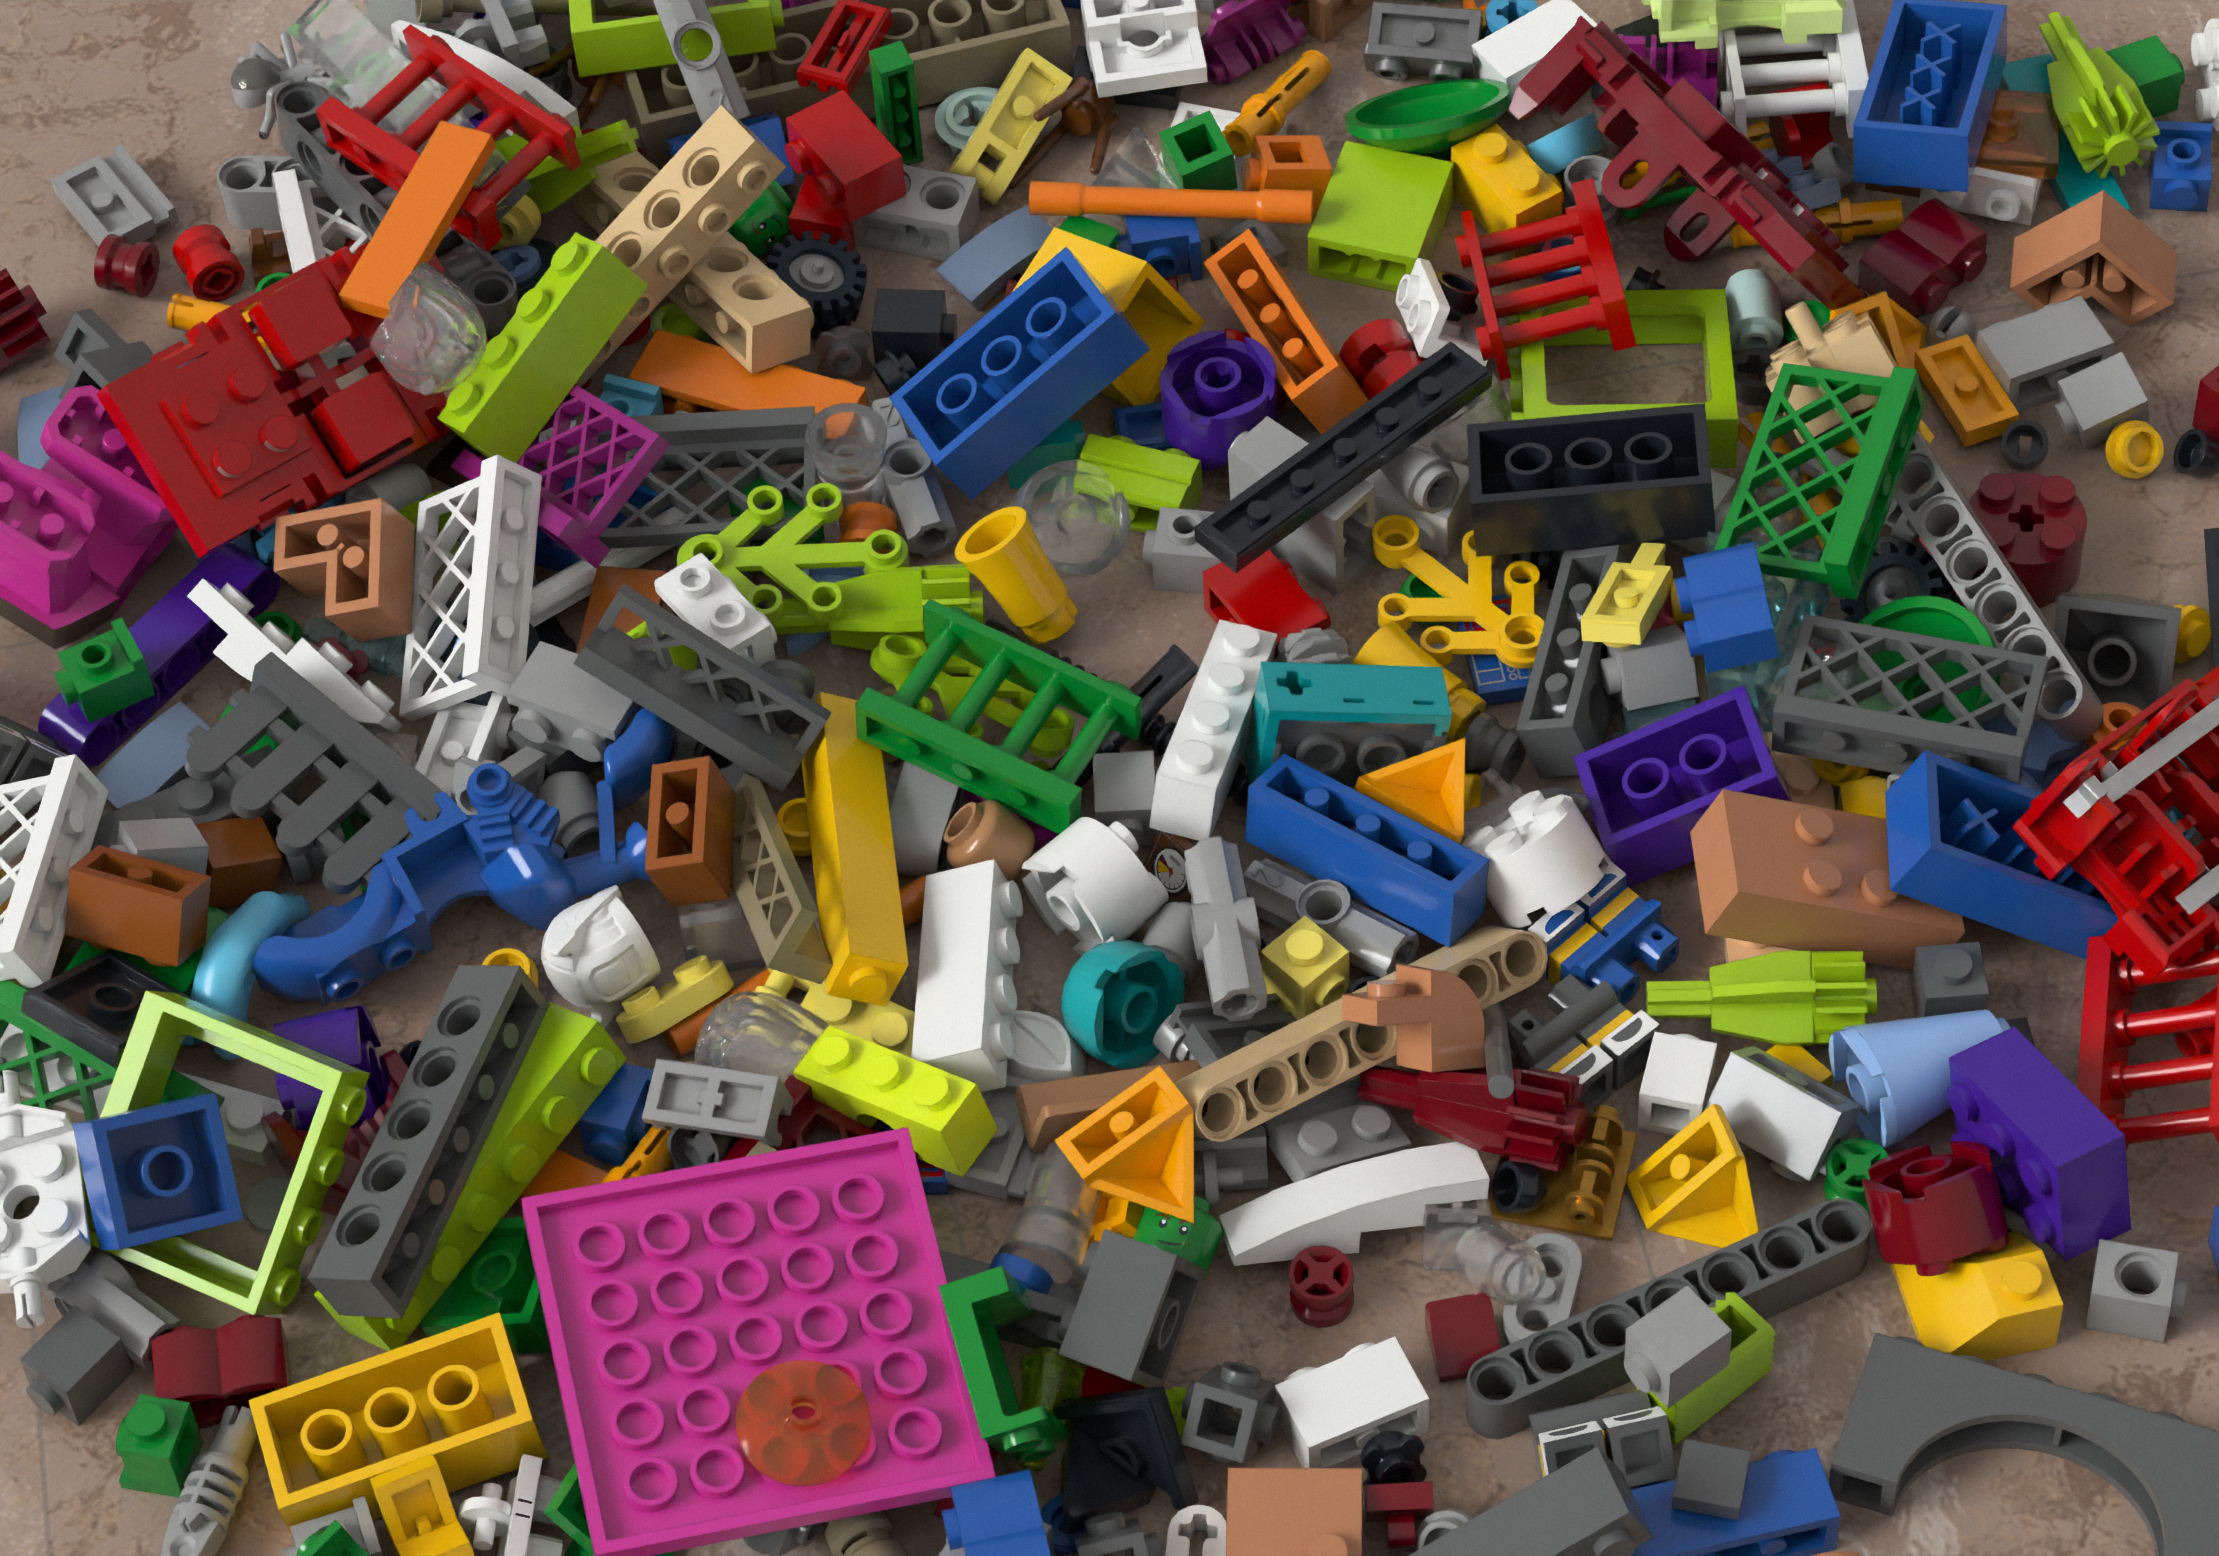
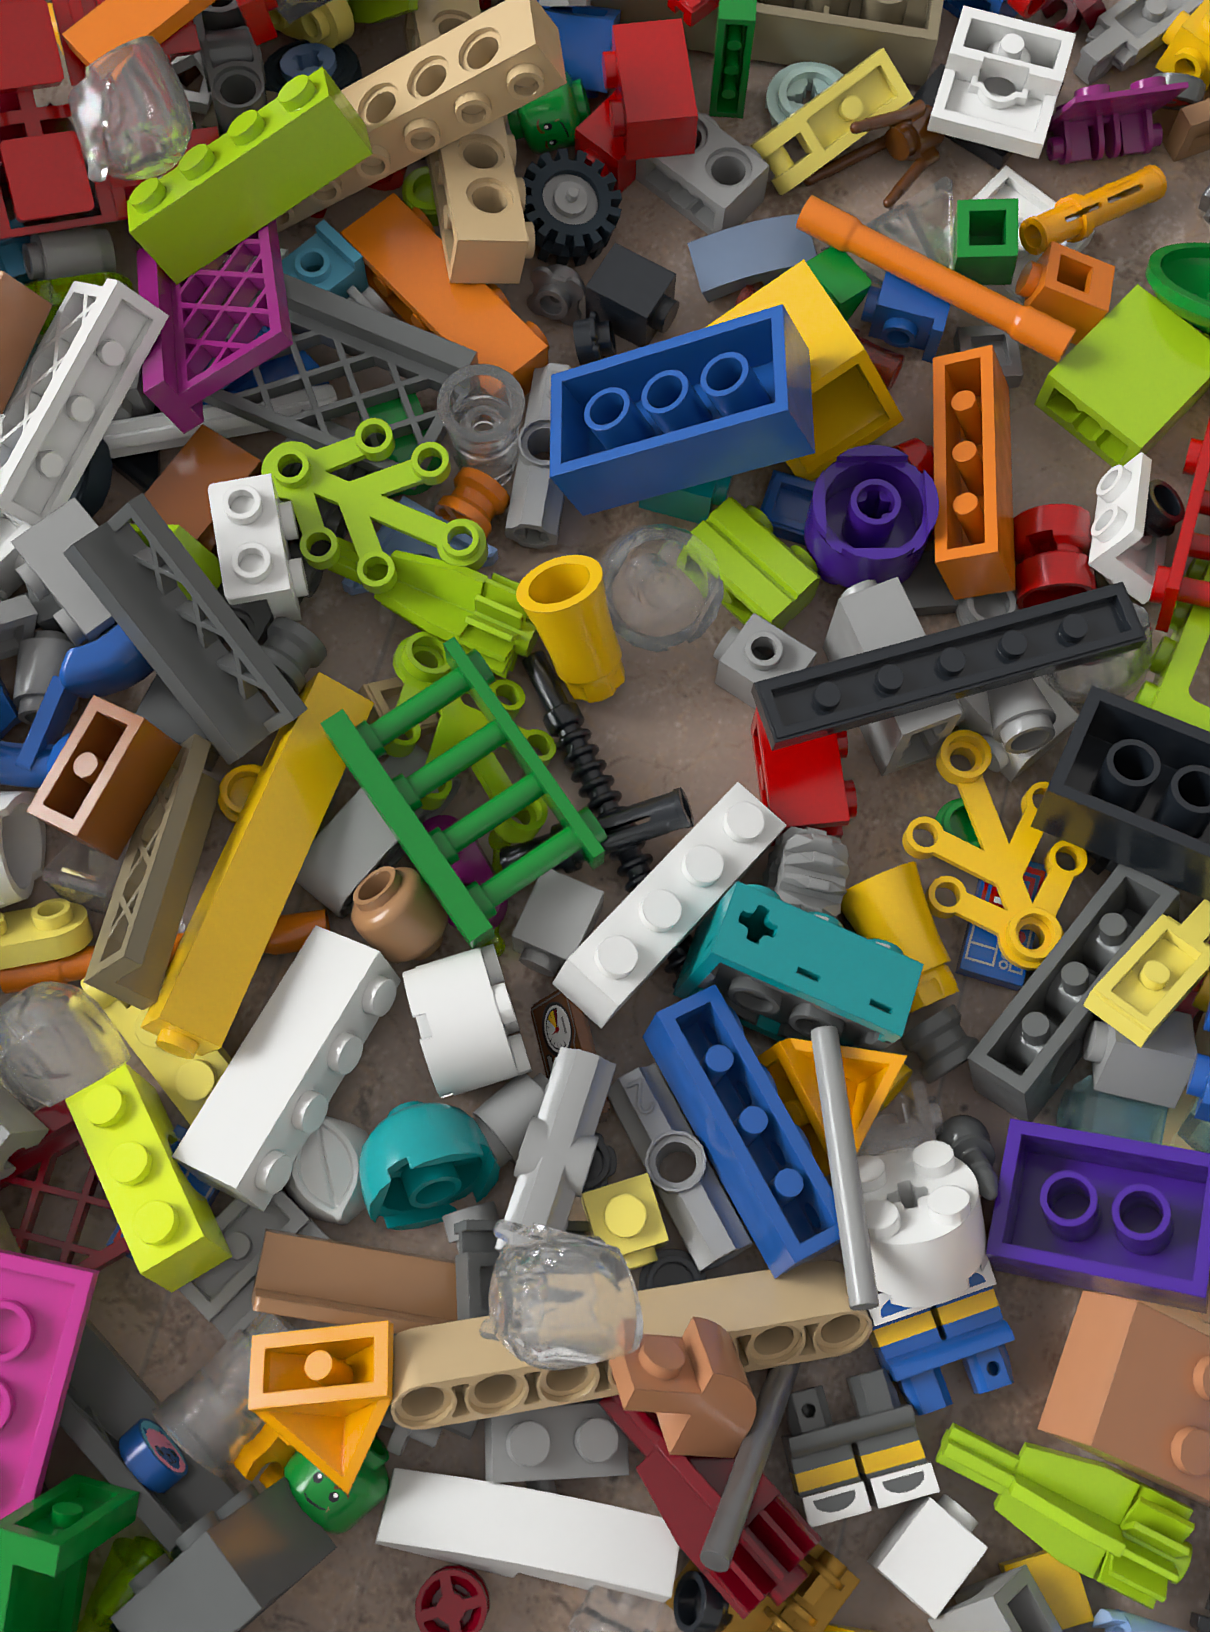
camera: 20 degrees right, 20 degrees up
(1288, 980) = (561, 1298): none -> clear helmet
(1456, 820) = (844, 1169): none -> light grey bar

